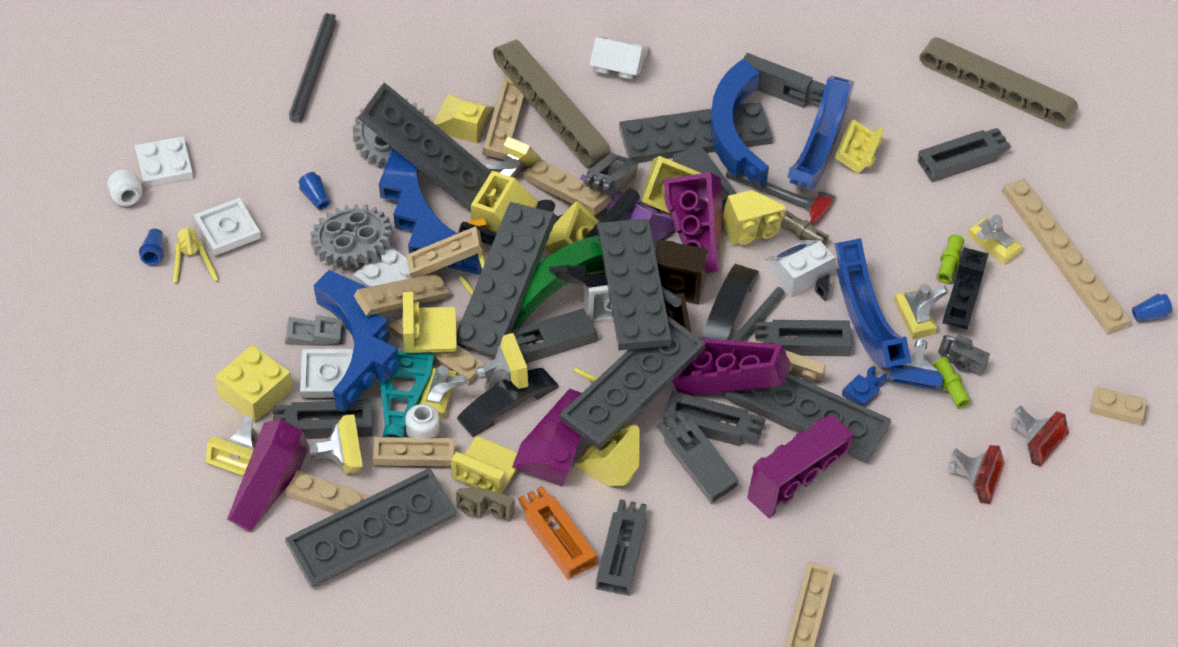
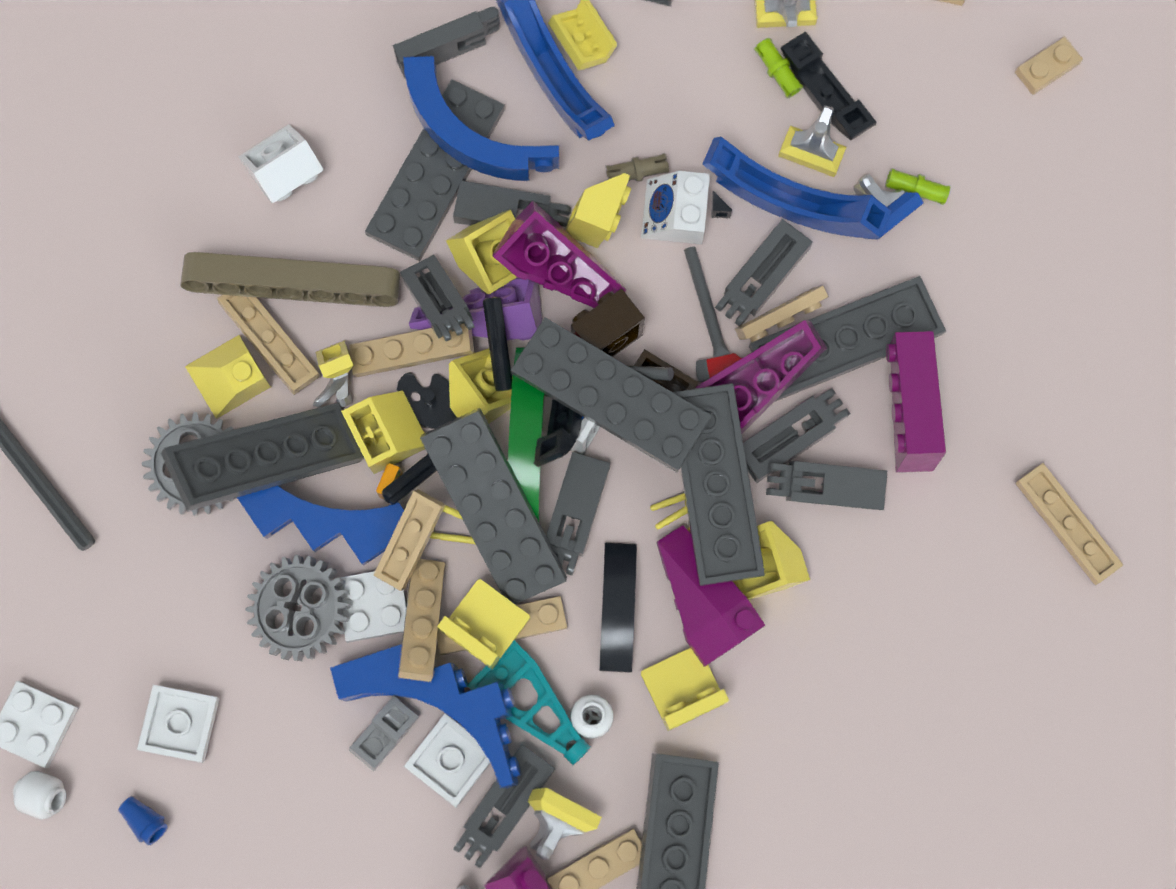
camera: 50 degrees left, 25 degrees up
(189, 244) = (168, 780): light yellow plant -> none
(253, 383) = (408, 847): light yellow brick -> none
(313, 188) = (203, 599): blue cone -> none
(412, 451) = (612, 747): tan plate -> none
(440, 388) = (559, 665): flat silver piece -> none
(477, 501) = (721, 732): dark tan slope -> none
(506, 365) = (591, 583): piece -> none
(564, 545) = (819, 682): orange hinge -> none
(620, 561) = (880, 642): dark grey hinge -> none
(729, 302) = (670, 307): black slope -> none
(816, 207) = (617, 135): dark grey piece -> none
(862, 389) = (859, 270): blue plate -> none
(964, 354) = (896, 150): flat silver piece -> none
(981, 471) = (1033, 246): clear red piece -> none
(1041, 435) = (1032, 160): clear red piece -> none

